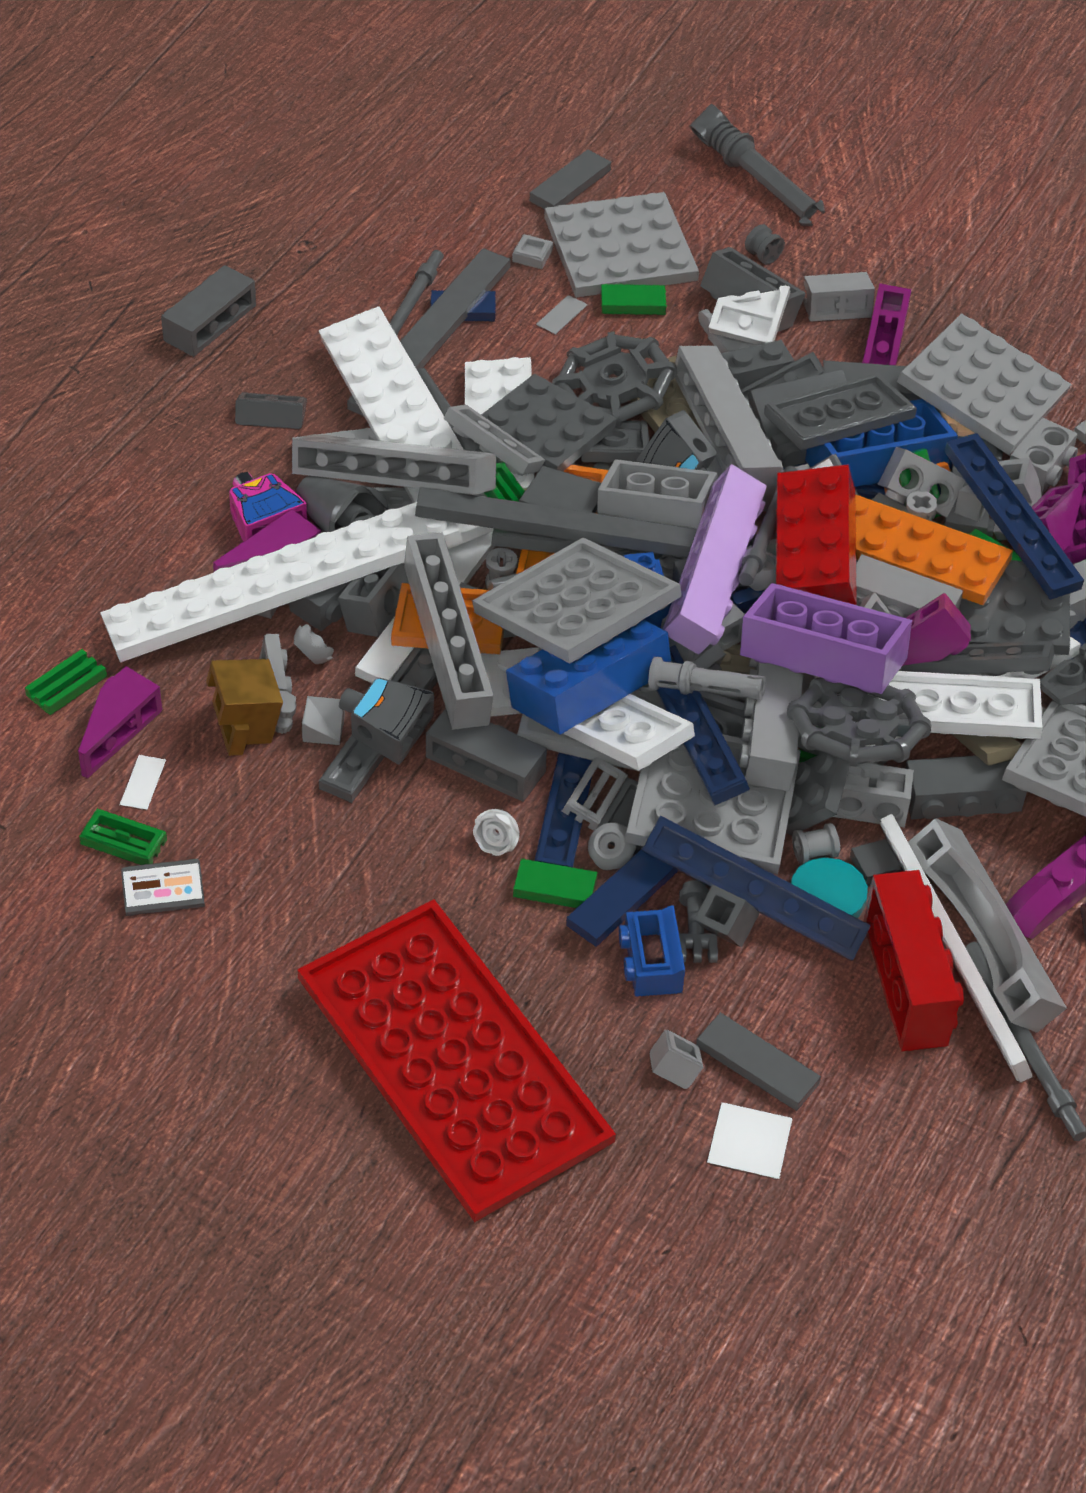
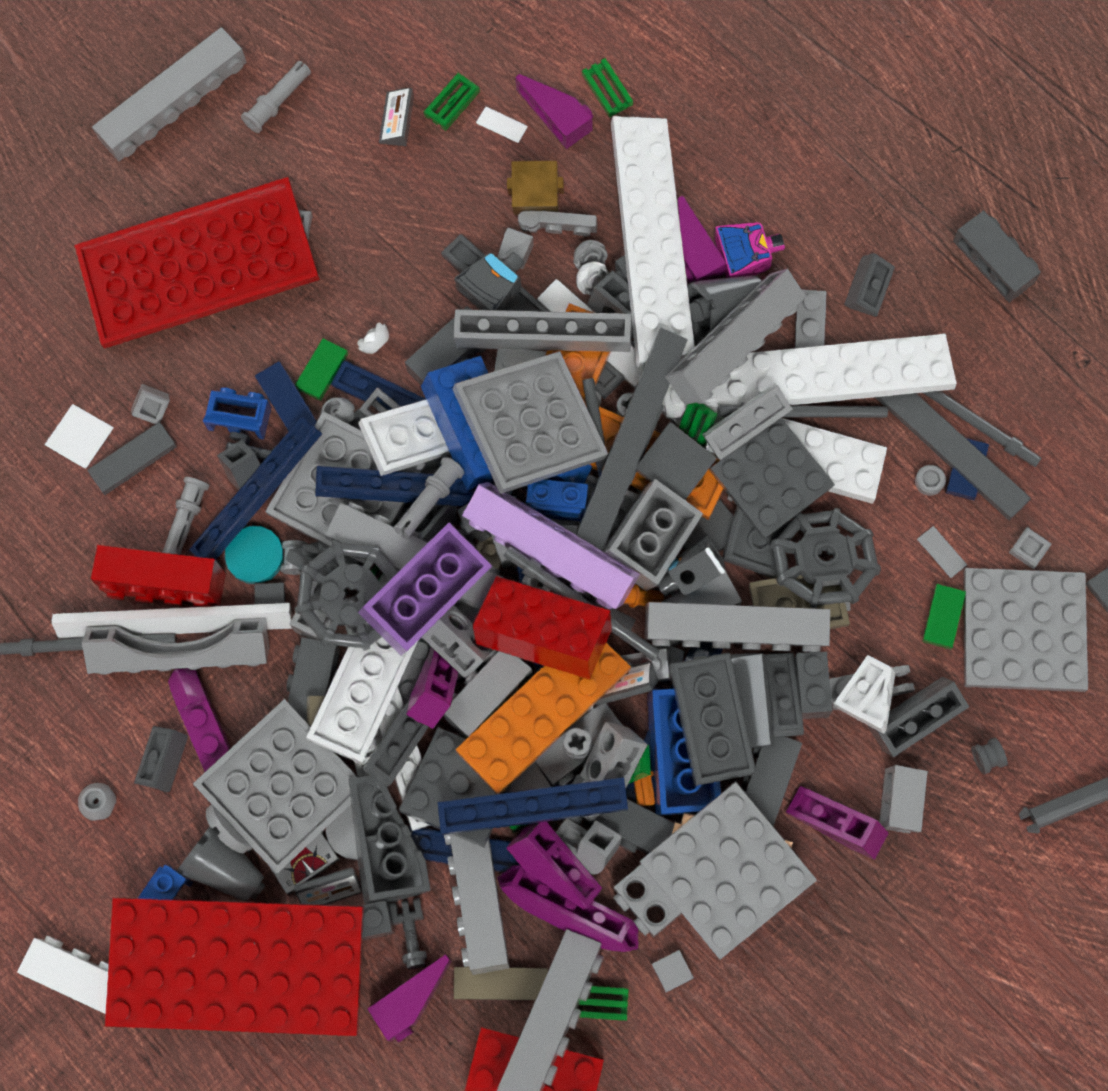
camera: 115 degrees right, 25 degrees up
(181, 1038) = (268, 104): none -> light grey pin
(197, 1164) = (170, 94): none -> light grey brick
(341, 637) = (590, 275): none -> white plate
(486, 330) = (930, 480): none -> light grey tile
(801, 973) = (187, 507): none -> light grey pin

